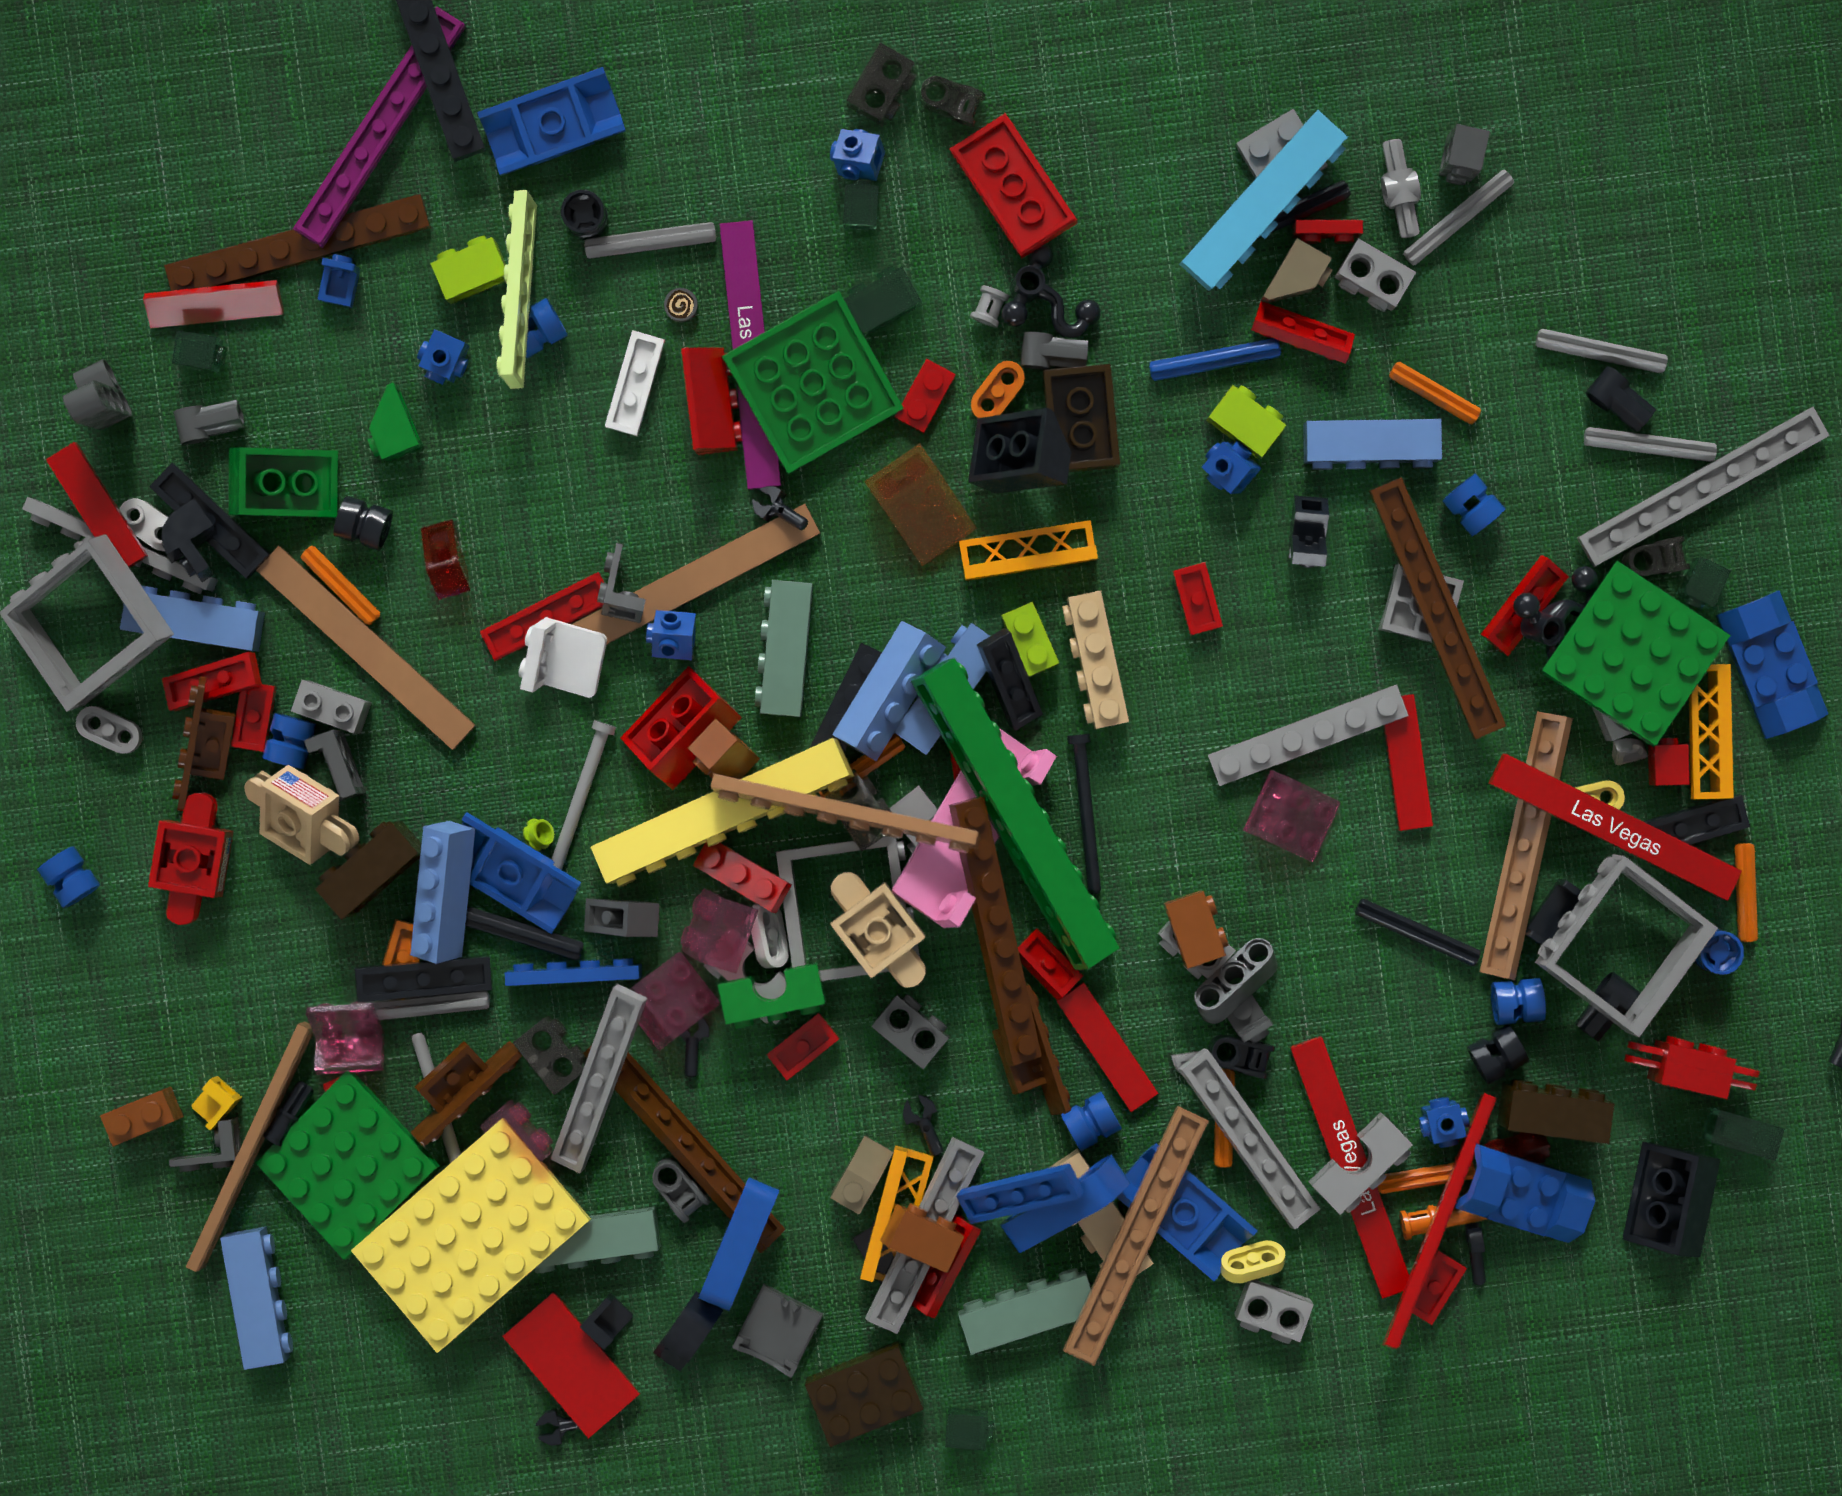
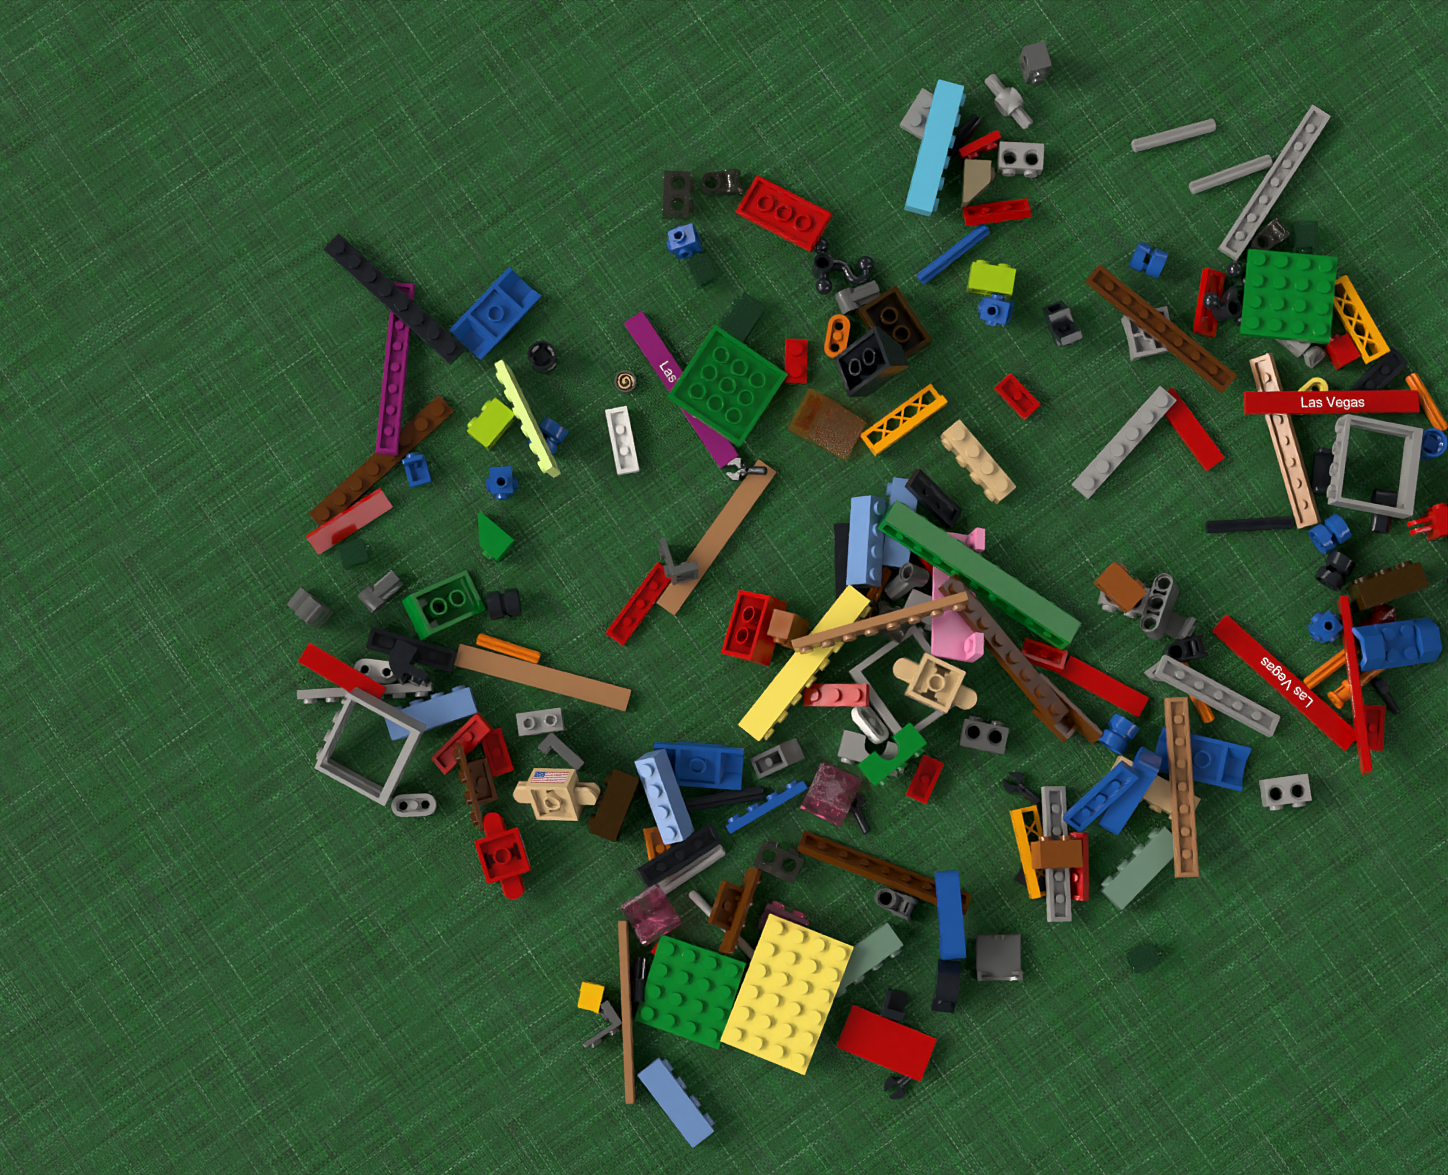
camera: 25 degrees left, 5 degrees down
(68, 877) = (435, 905): blue wheel -> none
(141, 1116) = (551, 1027): dark orange brick -> none
(288, 742) = (525, 755): blue wheel -> none
(444, 559) = (563, 600): clear red slope -> none
(538, 834) = (702, 734): lime plate -> none
(562, 658) = (664, 622): white bracket -> none
(581, 792) = (714, 695): light grey bar -> none
(598, 1078) = (815, 859): light grey plate -> none
(650, 240) = (587, 353): light grey axle -> none
(672, 635) = (721, 575): blue brick -> none
(710, 401) = (672, 427): red slope -> none
(718, 931) = (839, 734): clear pink bracket -> none
(785, 648) = (791, 548): sand green brick -> none
(861, 1175) = (999, 837): dark tan slope -> none
(864, 1393) = (1070, 967): dark brown brick -> none
(919, 769) = (909, 577): none -> dark grey piece
(998, 298) = (809, 295): light grey bush -> none
(1030, 639) = (933, 467): lime brick -> none
(1086, 810) = (992, 515): black bar -> none
(1250, 1261) = (1258, 768): light yellow plate -> none
(1292, 815) = (1139, 494): clear pink bracket -> none
(1372, 442) = (1070, 254): medium blue brick -> none
(1384, 1146) = (1298, 659): light grey arch -> none
(1435, 393) = (1091, 208): orange axle -> none
(1458, 217) = (1050, 101): light grey axle -> none
(1613, 393) = (1194, 156): black piece -> none
(1773, 665) = (1370, 264): blue piece -> none

